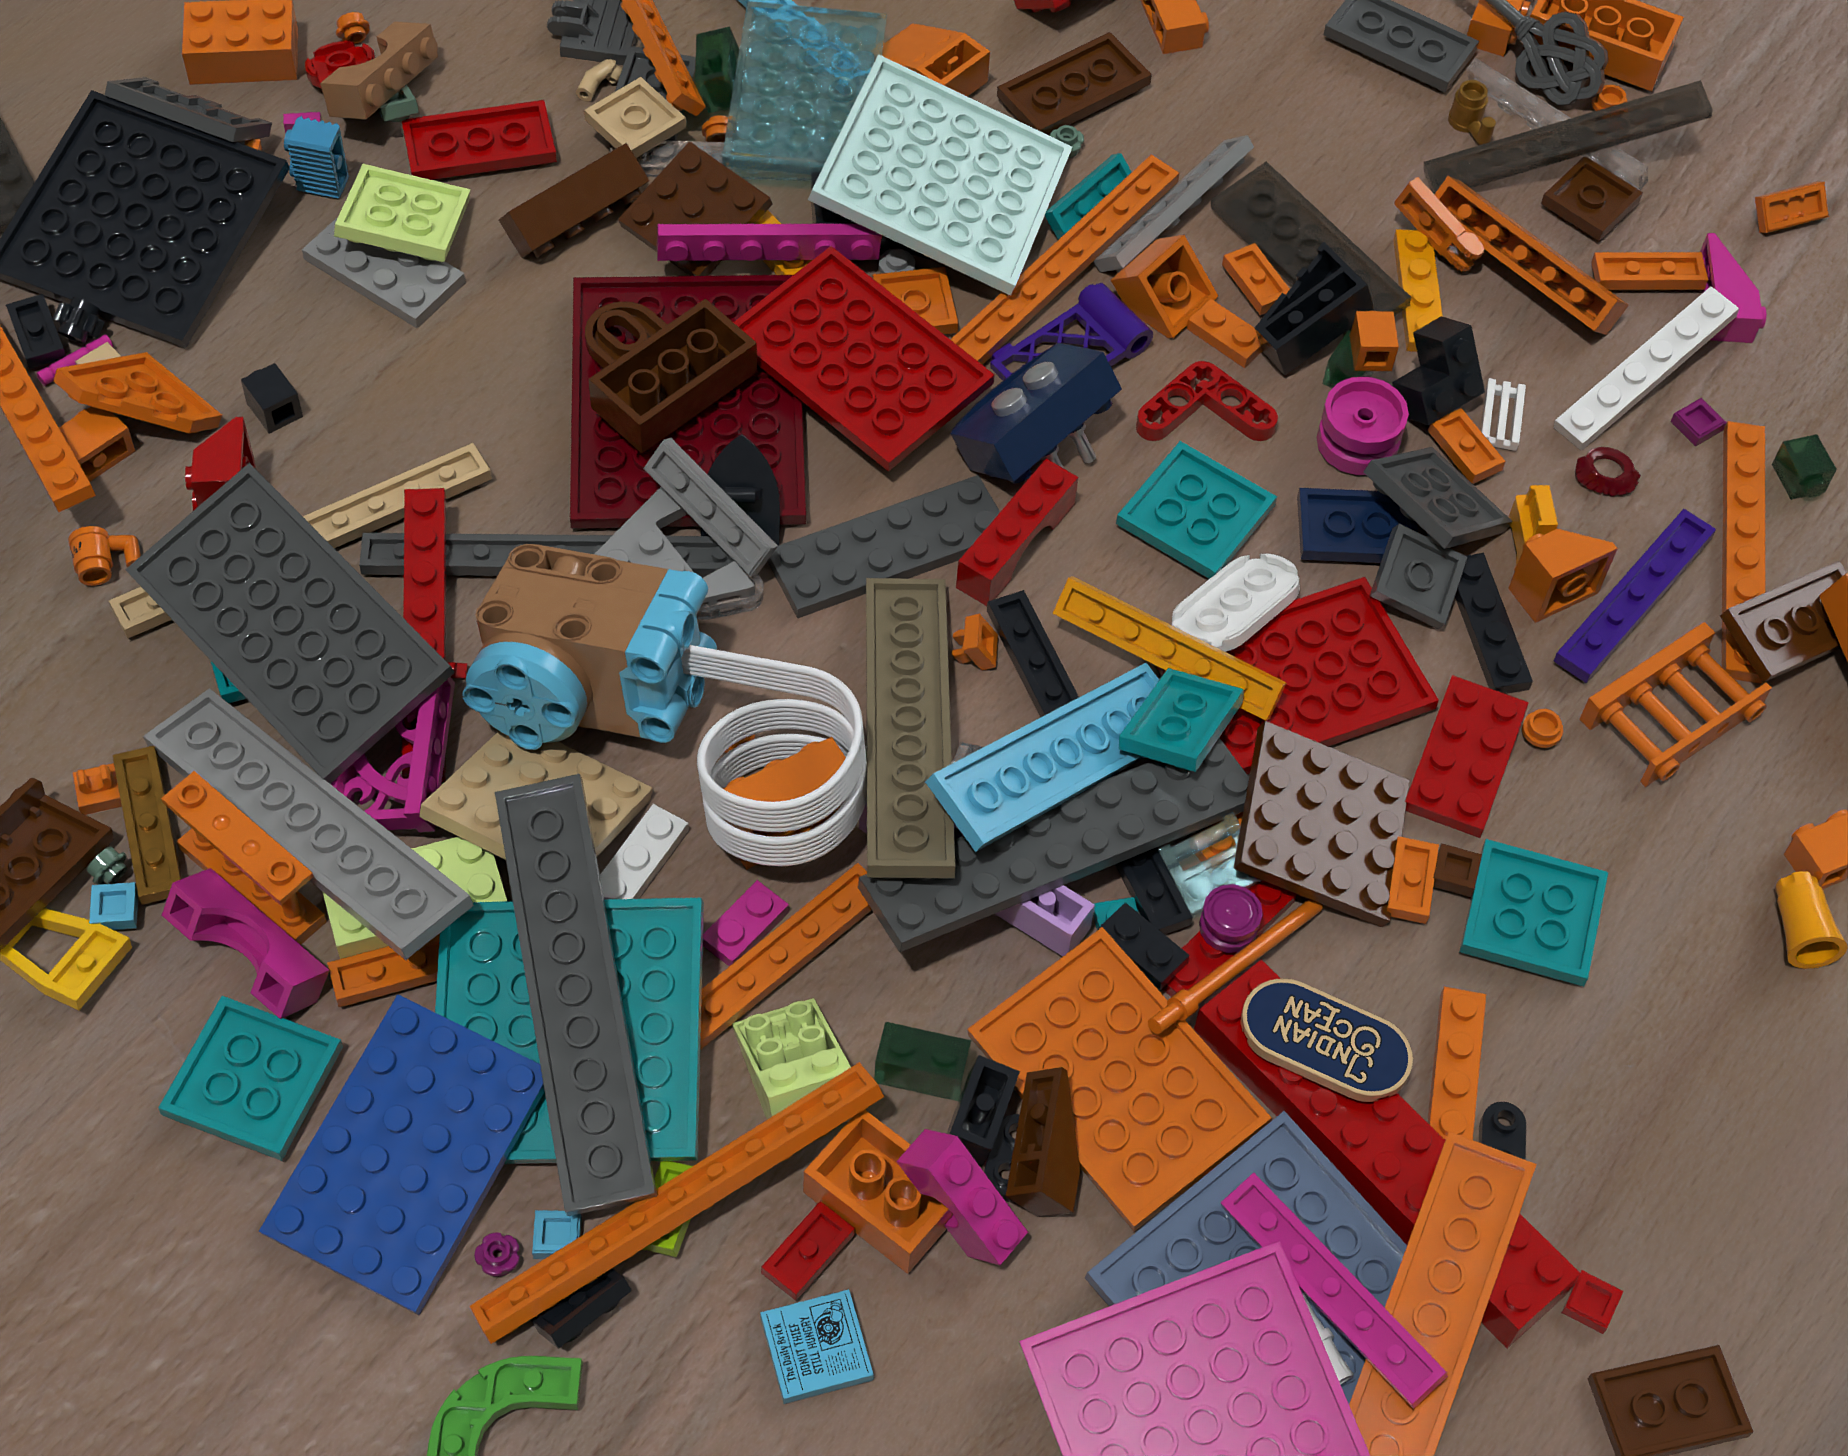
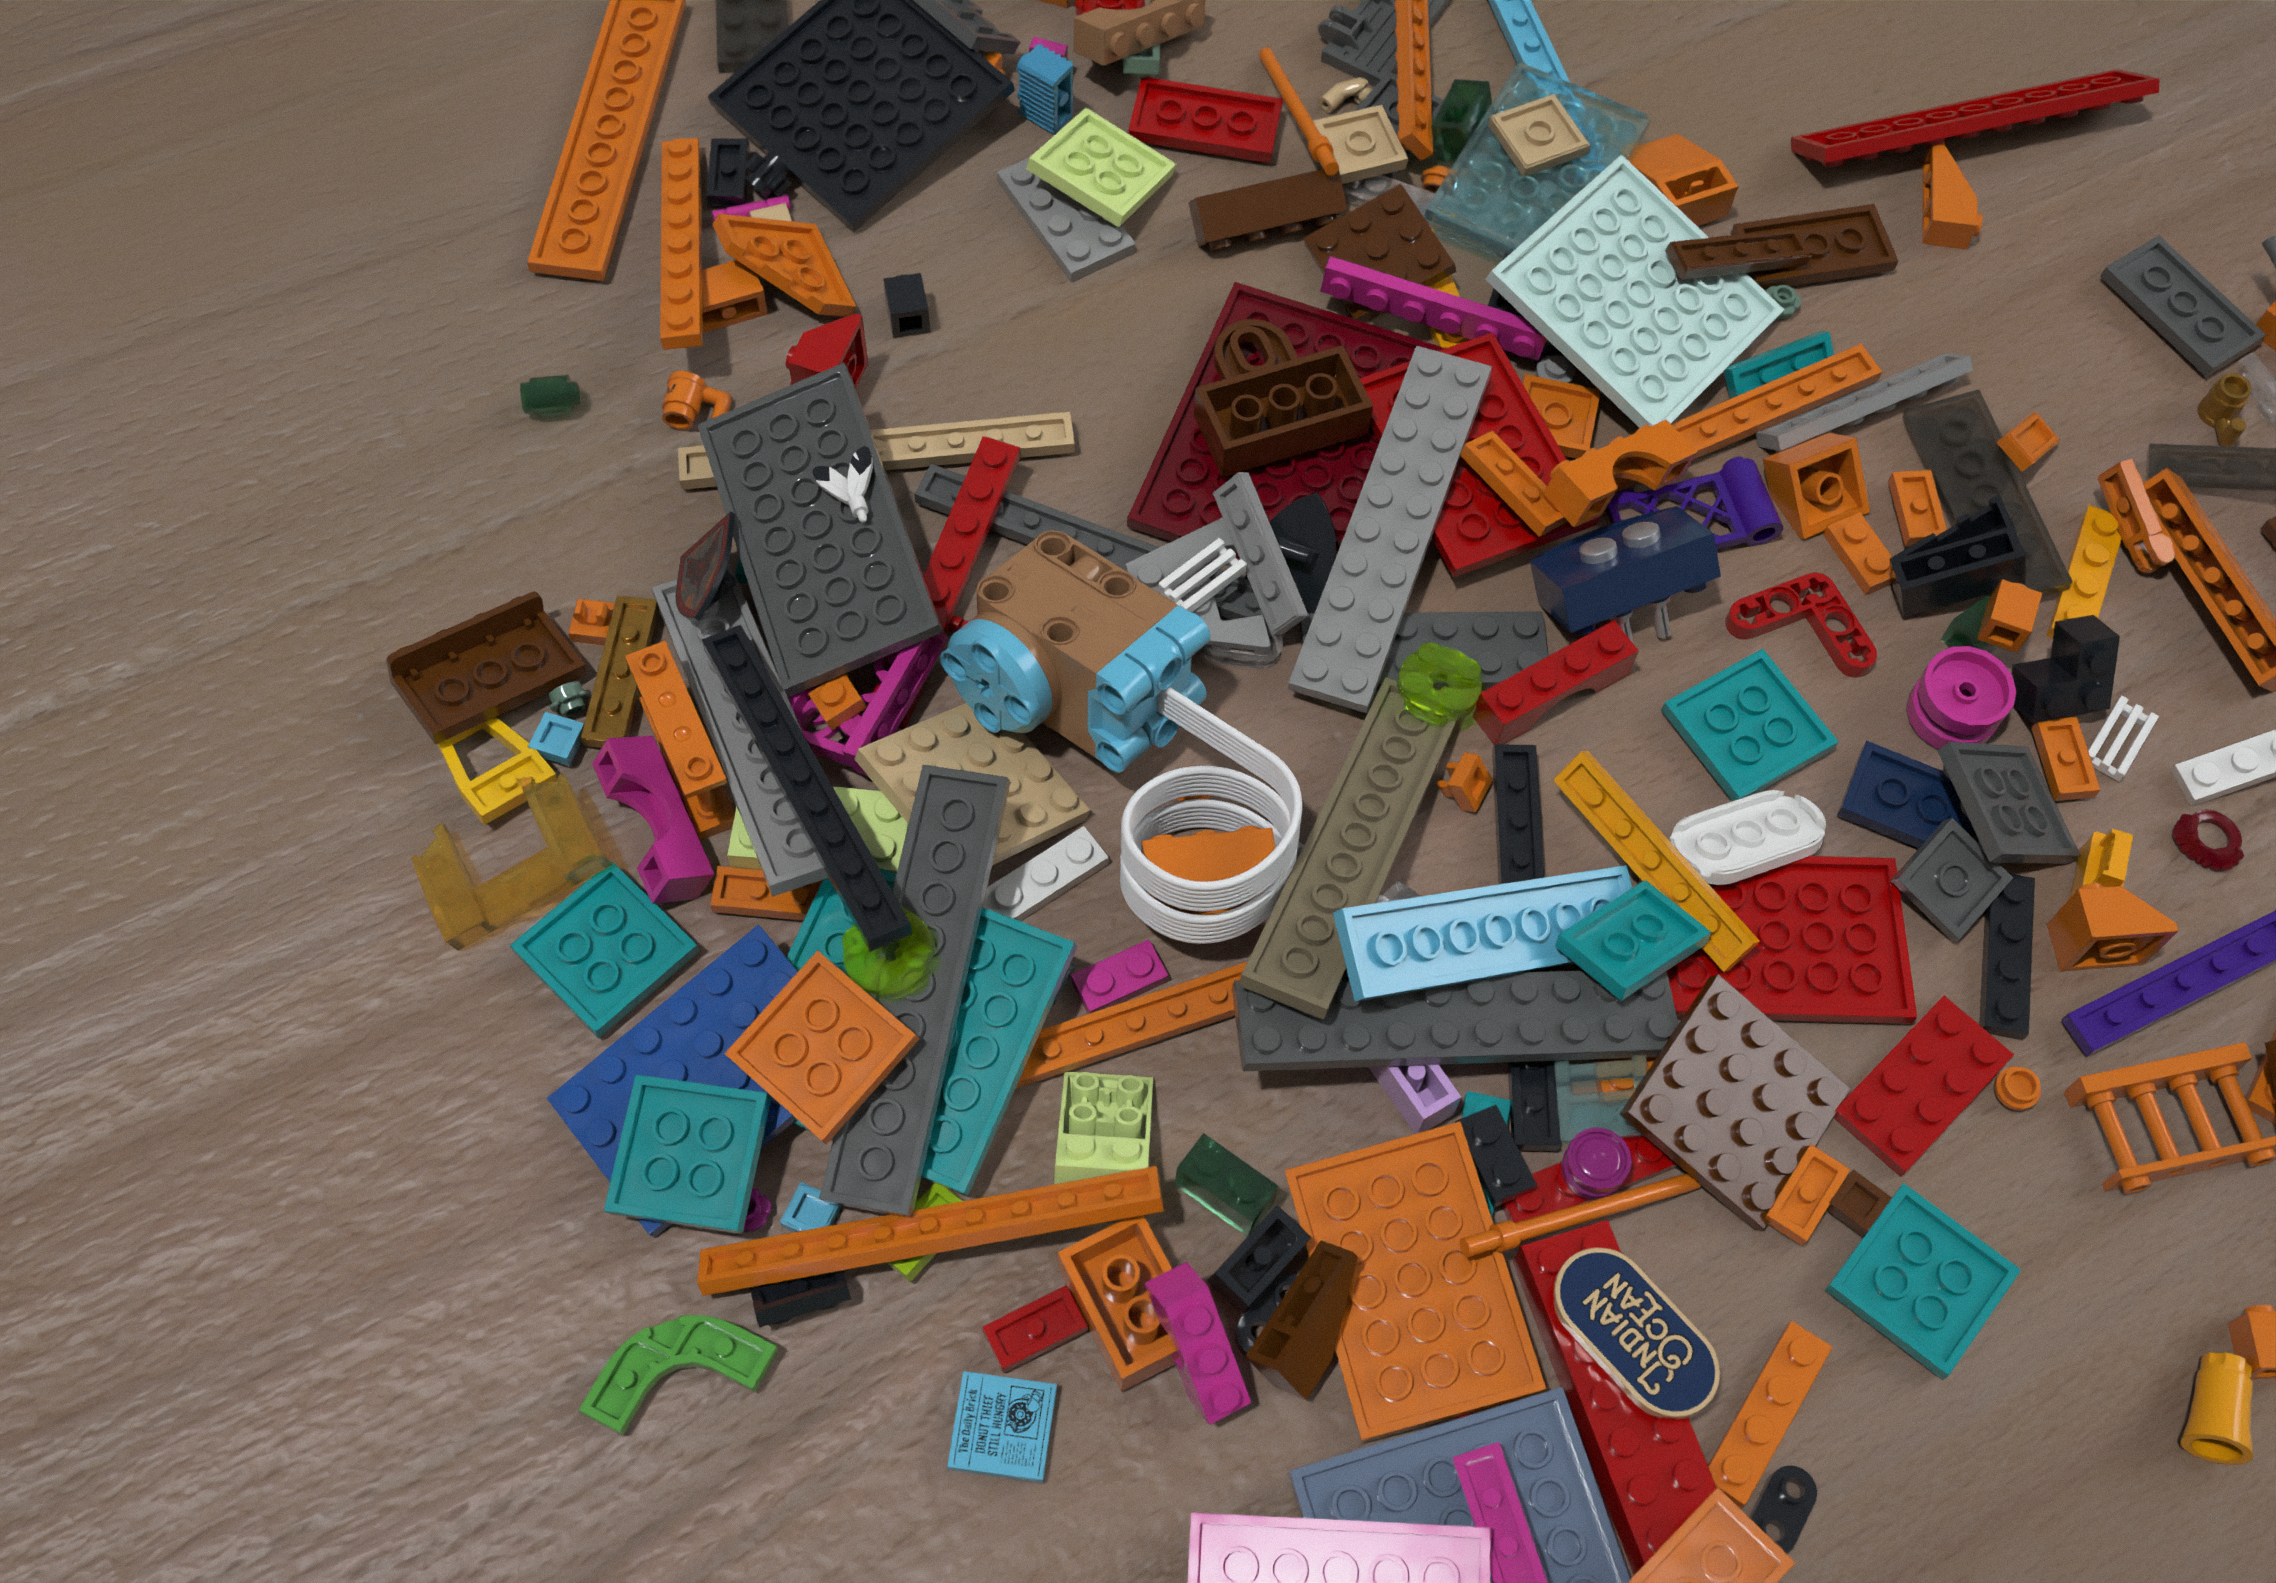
camera: 25 degrees right, 5 degrees up
(107, 1093) = (471, 912): none -> clear yellow wedge
(194, 698) = (704, 572): none -> shield
(310, 575) = (849, 489): none -> white piece
(376, 772) = (837, 700): none -> orange plate
(393, 851) = (807, 790): none -> black plate
(425, 1220) = (688, 1154): none -> teal plate
(511, 1075) = (822, 1047): none -> orange plate
(539, 992) = (895, 977): none -> clear neon green plate
(600, 129) = (1318, 144): none -> orange bar
(680, 521) = (1193, 565): none -> white tile
(795, 60) = (1538, 135): none -> tan tile
(816, 448) = (1390, 530): none -> light grey plate
(911, 369) = (1513, 482): none -> orange plate
(922, 548) = (1445, 664): none -> clear neon green plate
(975, 347) = (1587, 484): none -> orange arch
(1014, 110) = (1738, 253): none -> reddish brown tile
(1325, 192) = (2028, 441): none -> orange tile

